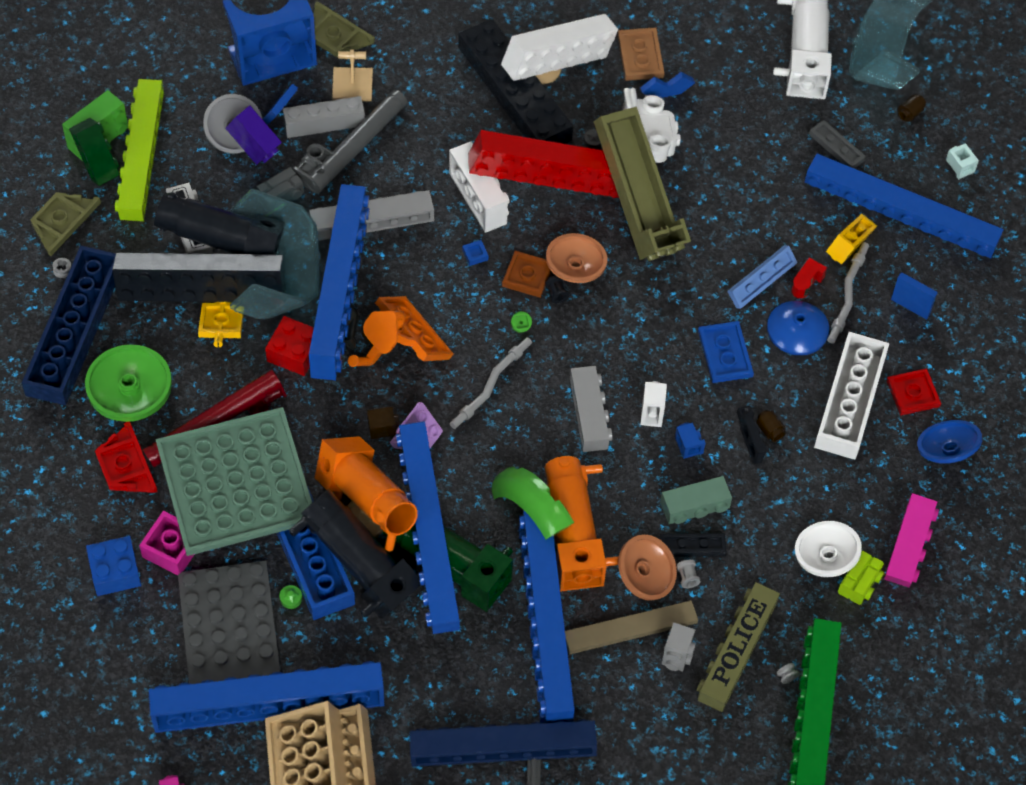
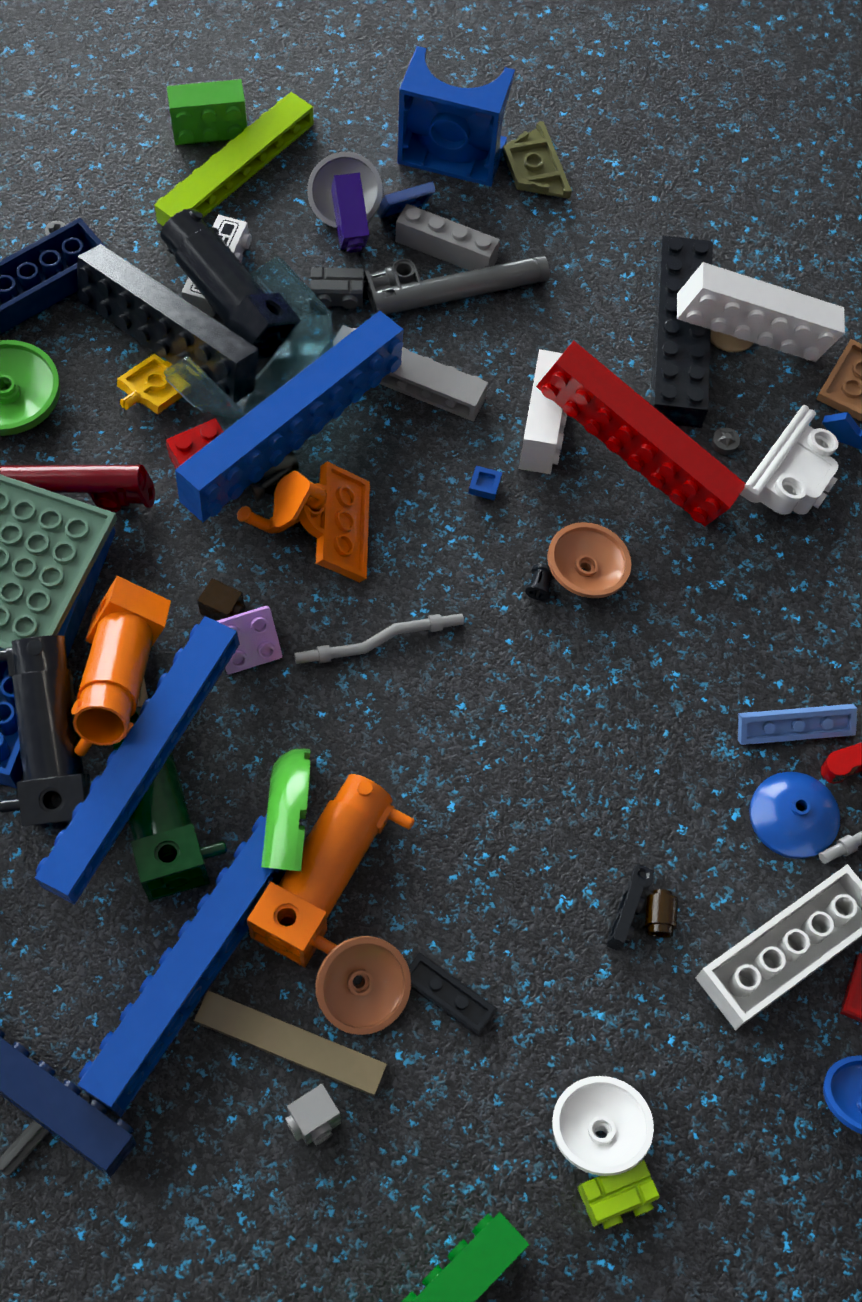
camera: 35 degrees right, 5 degrees up
(60, 218) = (99, 184): olive wing -> none
(95, 151) = (178, 133): dark green brick -> none
(352, 81) = (511, 221): tan plate -> none
(521, 322) = (470, 592): bright green tile -> none
(526, 274) = (522, 542): dark orange tile -> none
(589, 408) = (461, 744): light grey brick -> none
(640, 185) = (723, 520): olive brick -> none
(653, 404) = (536, 789): white brick -> none
(688, 573) = (410, 1027): light grey bush -> none
(689, 440) = (547, 862): blue brick -> none
(696, 500) = (494, 942): sand green brick -> none
(725, 352) = (681, 785): blue tile -> none
(738, 647) = (392, 1167): olive brick -> none
(788, 673) = (425, 1250): light grey bush -> none
(910, 540) = (718, 1194): dark pink wedge -> none

